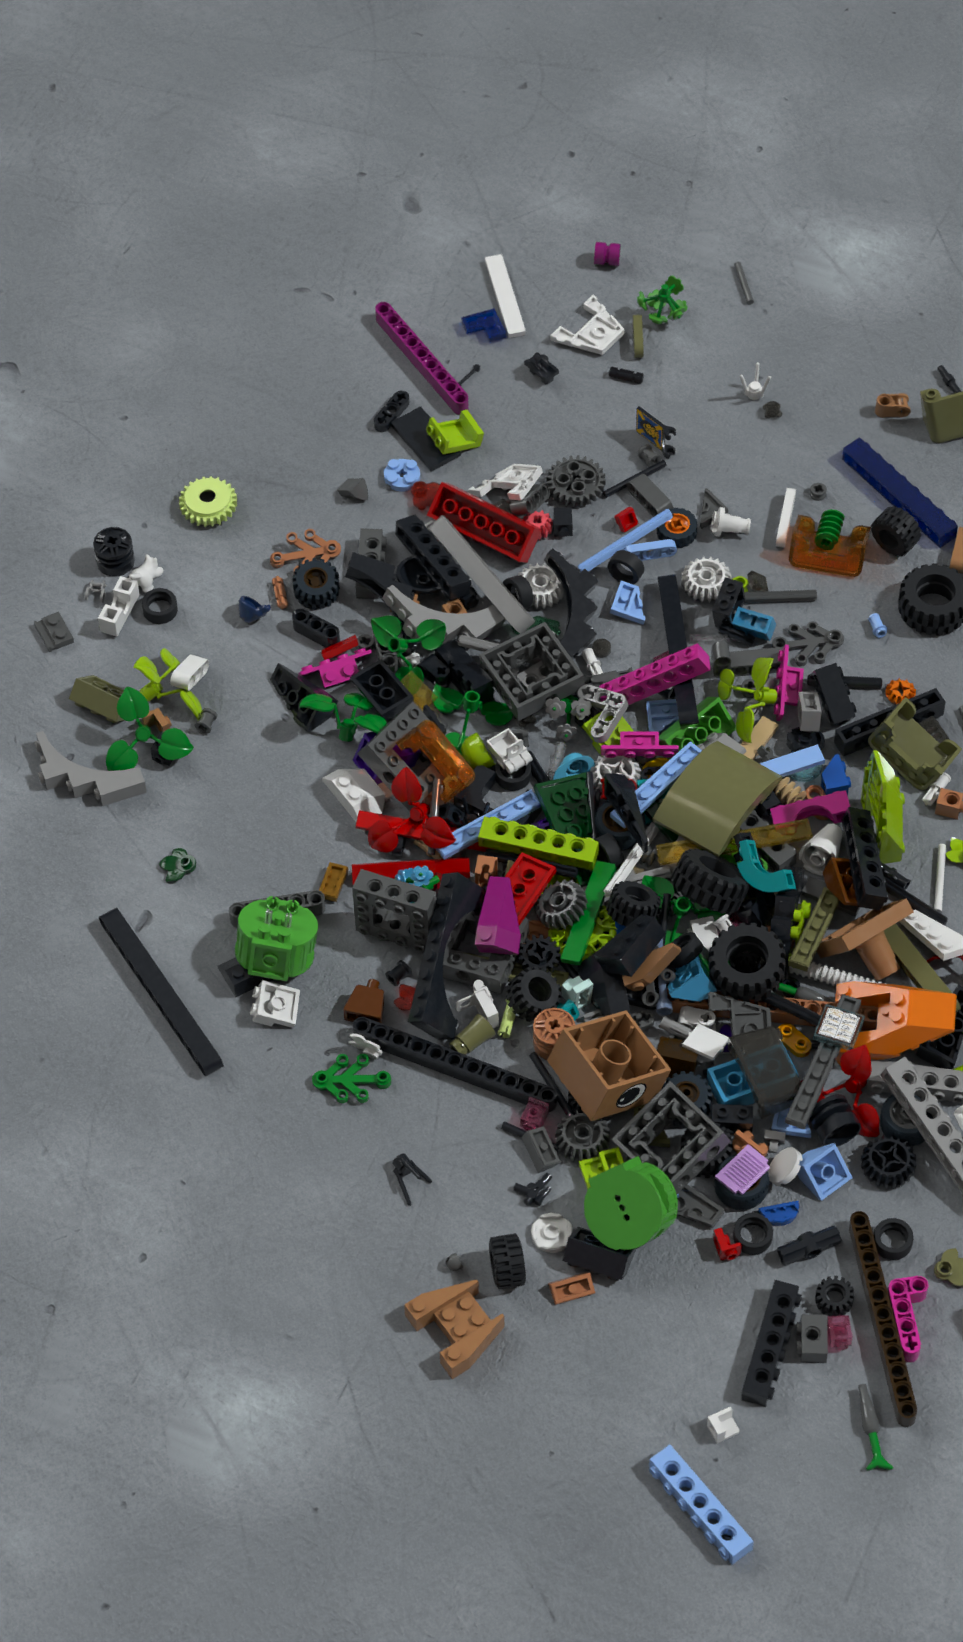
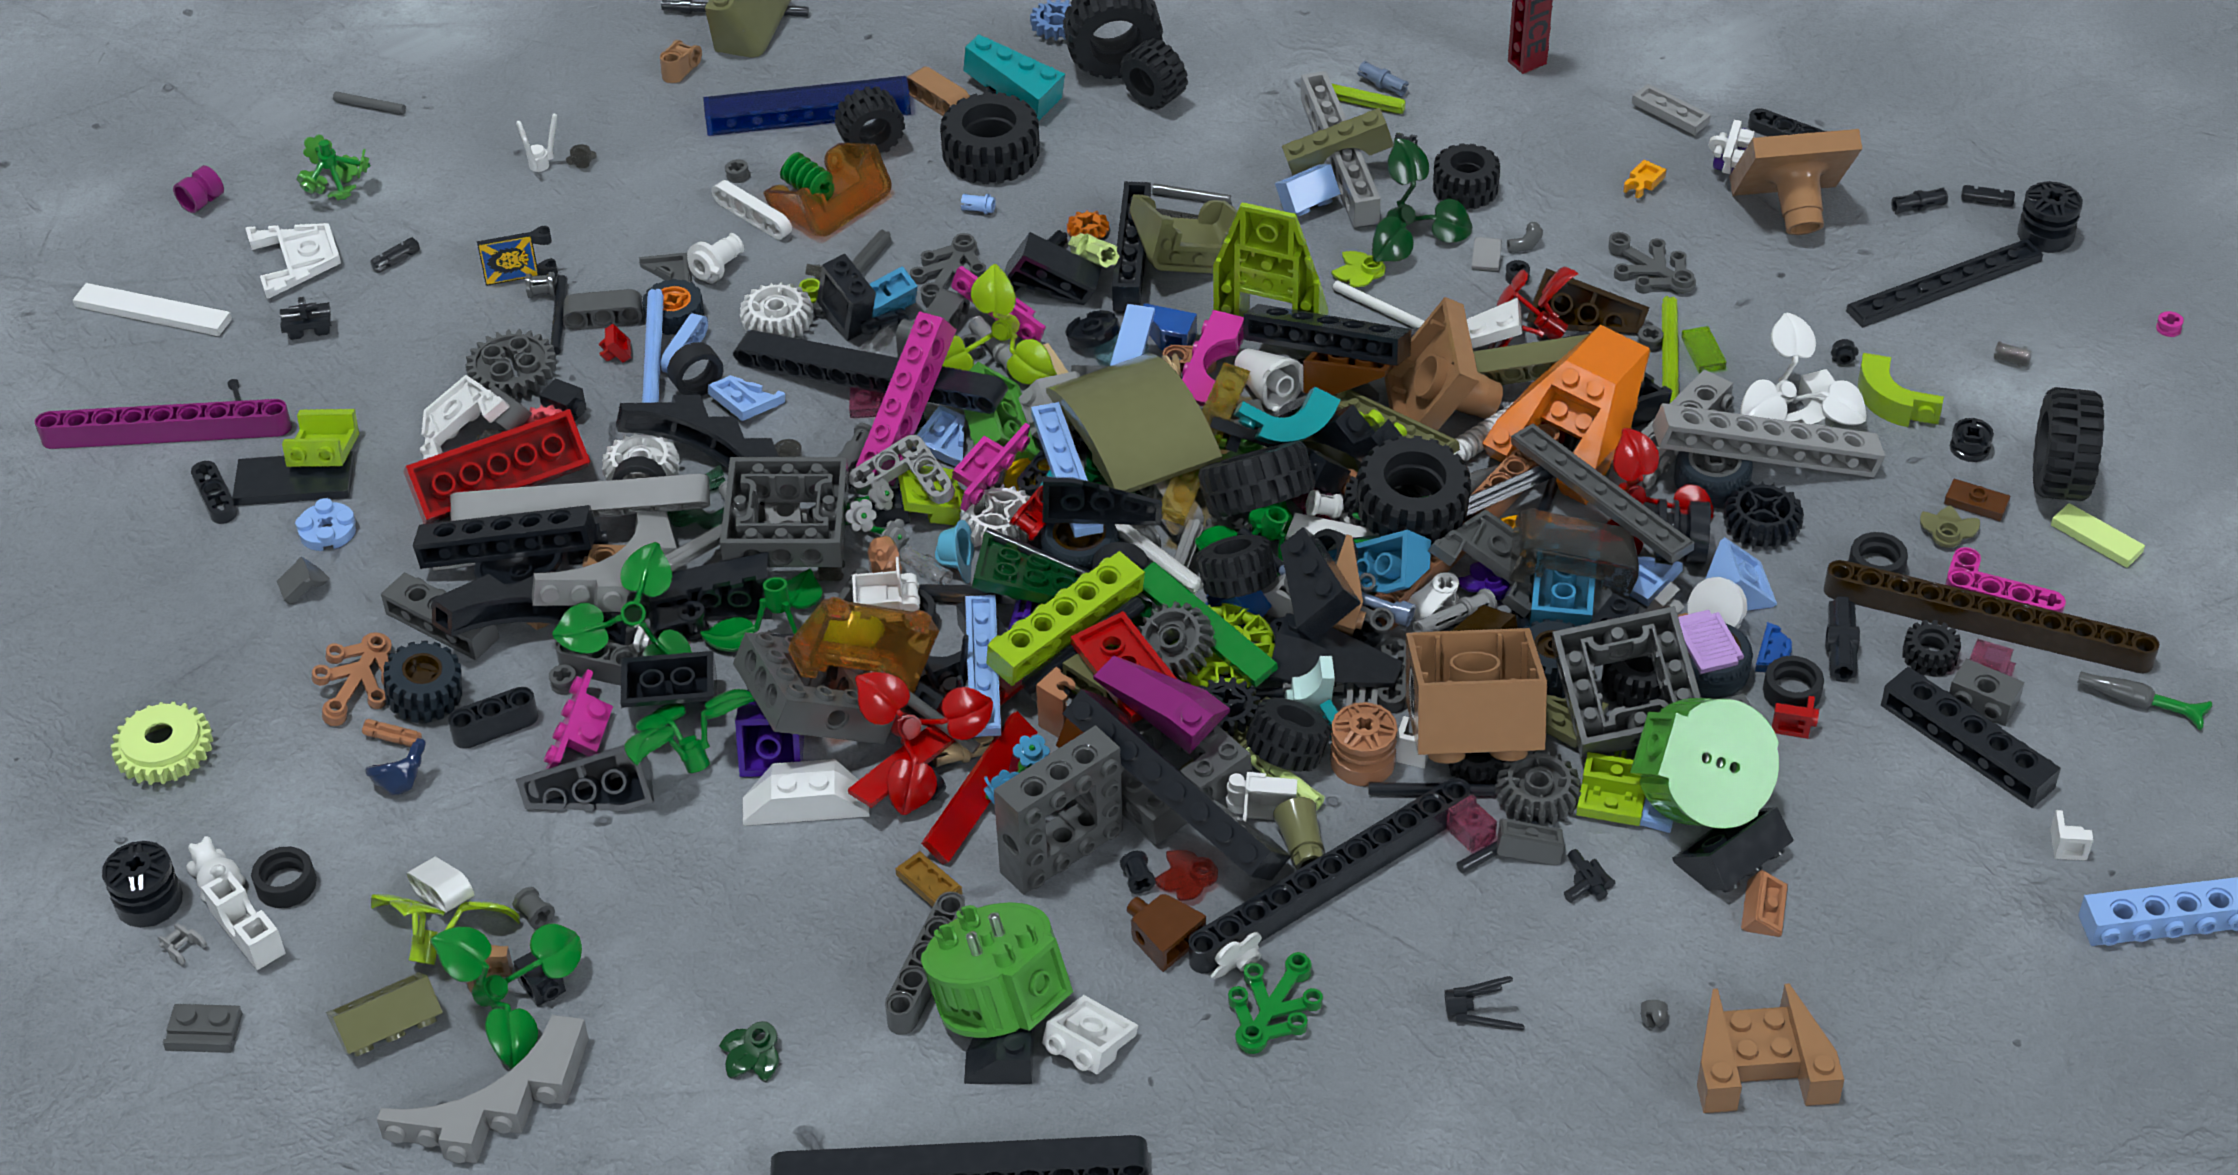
camera: 60 degrees left, 10 degrees down
(339, 647) = (551, 702): red tile -> none
(419, 690) = (690, 644): clear yellow tile -> none
(424, 494) = (384, 515): clear red plate -> none
(486, 321) = (174, 340): clear blue plate -> none
(507, 1261) = (1703, 942): black tyre -> none
(542, 740) = (882, 555): none -> nougat rock
(551, 1232) = (1665, 889): white tile -> none
(638, 336) = (350, 218): olive beam -> none
(705, 1042) = (1485, 596): white piece -> none
(809, 711) = (1061, 301): light grey brick -> none
(838, 1027) = (1566, 453): tile -> none
(865, 704) = (1094, 250): none -> yellowish green piece

